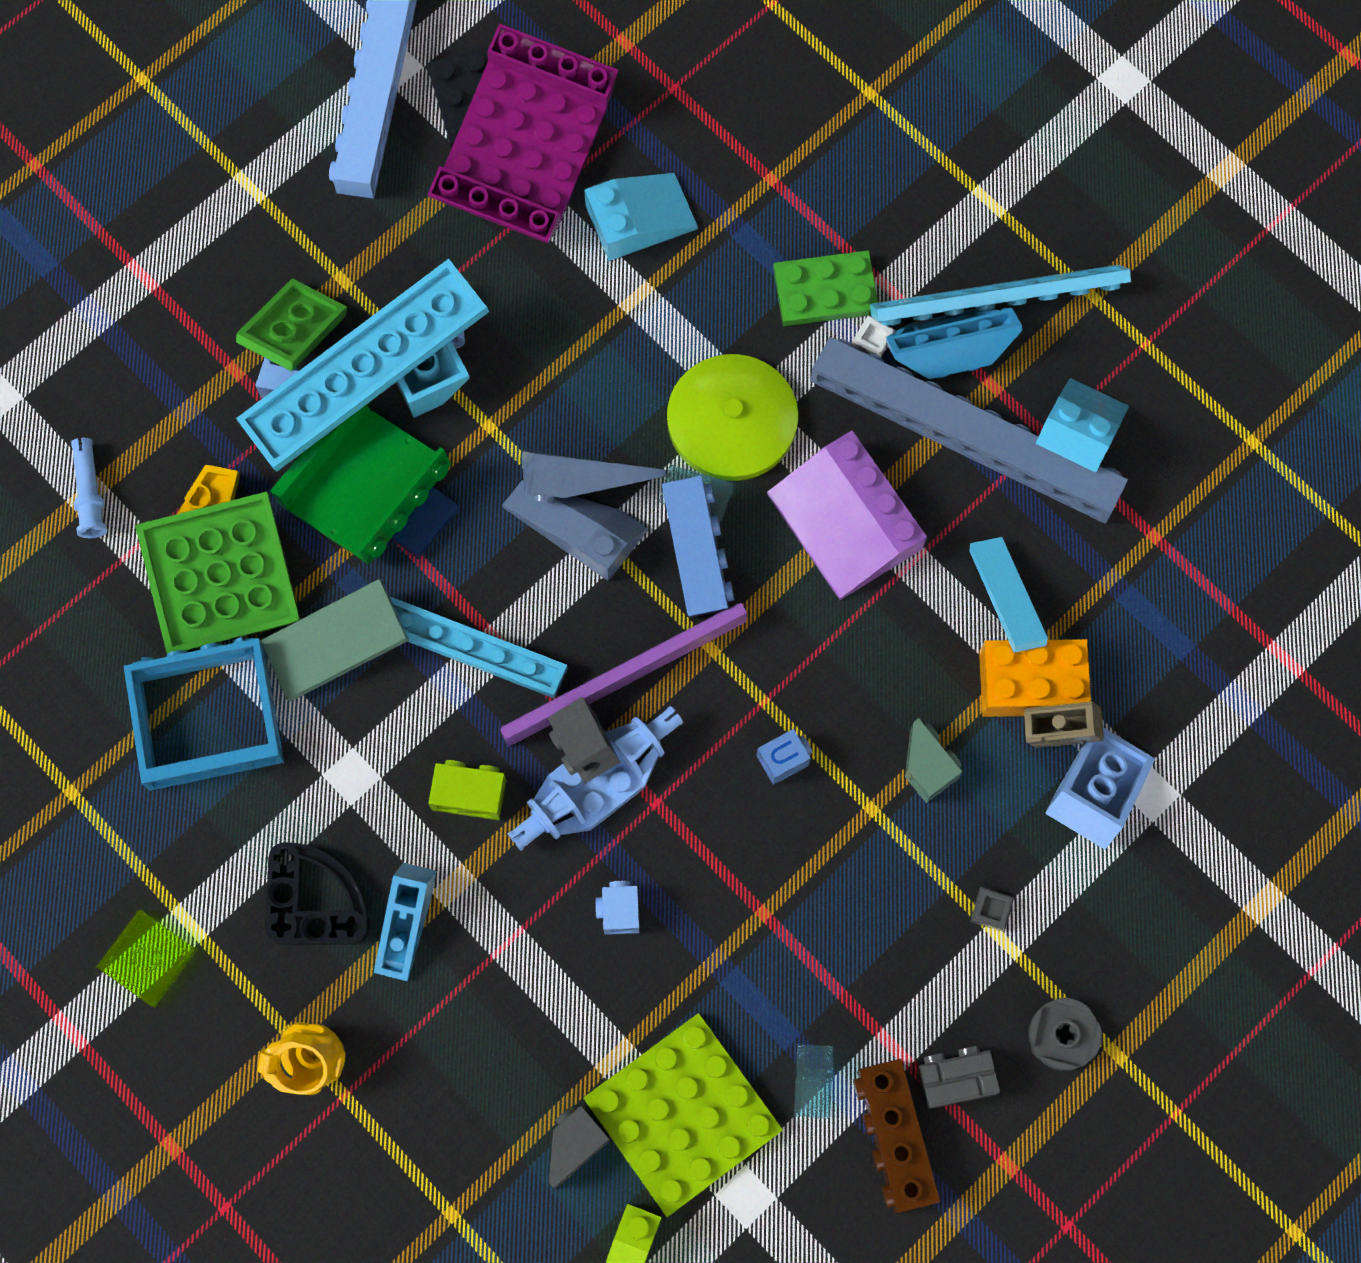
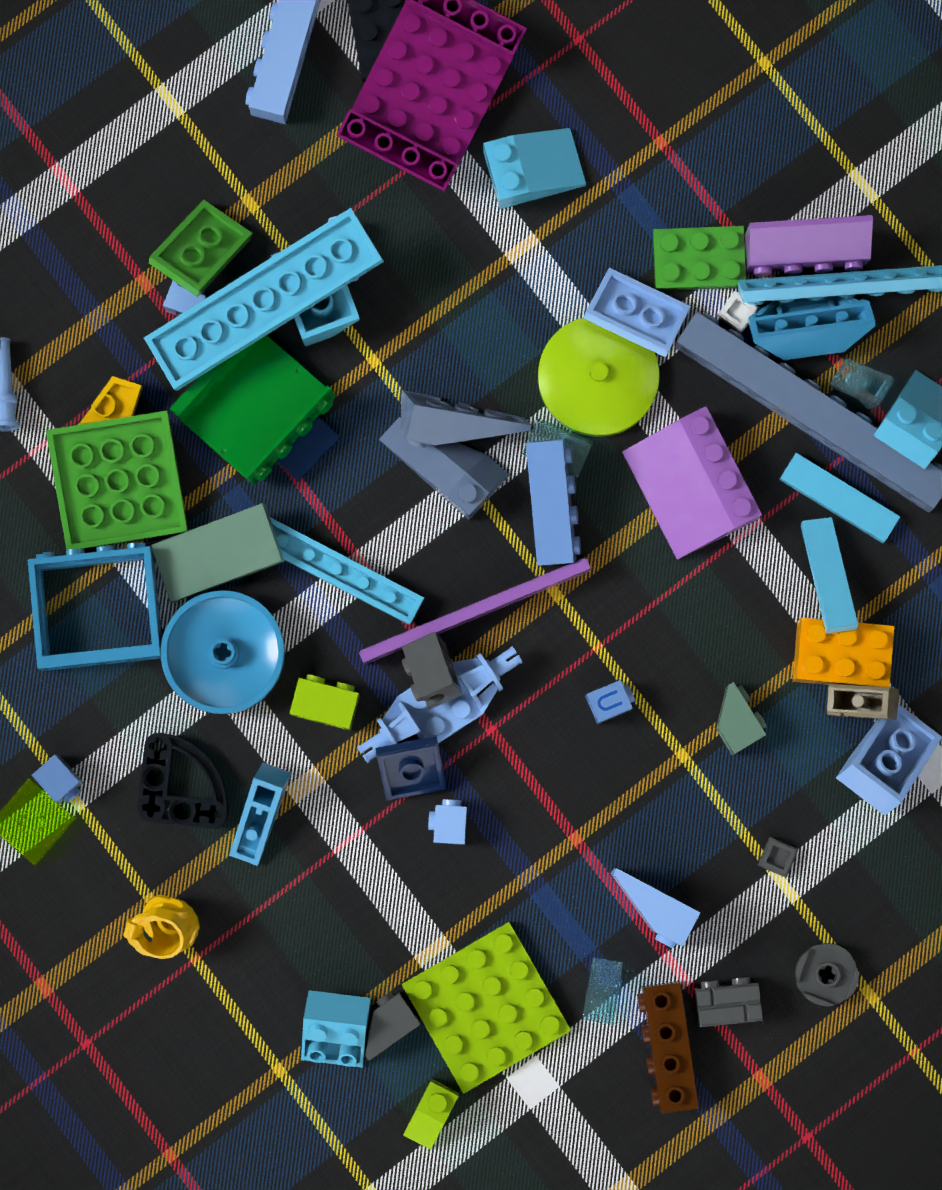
camera: 10 degrees right, 10 degrees up
(173, 906) = (58, 780): none -> medium blue brick
(348, 745) = (222, 652): none -> dark azure dish
(511, 1157) = (335, 1028): none -> medium azure slope
(570, 850) = (411, 768): none -> dark blue tile
(766, 345) = (637, 312): none -> light blue plate
(866, 978) = (660, 912): none -> light blue slope
(939, 258) = (808, 245): none -> medium lavender slope
(1007, 517) = (839, 498): none -> medium azure tile
(1016, 393) = (862, 383): none -> clear light blue slope

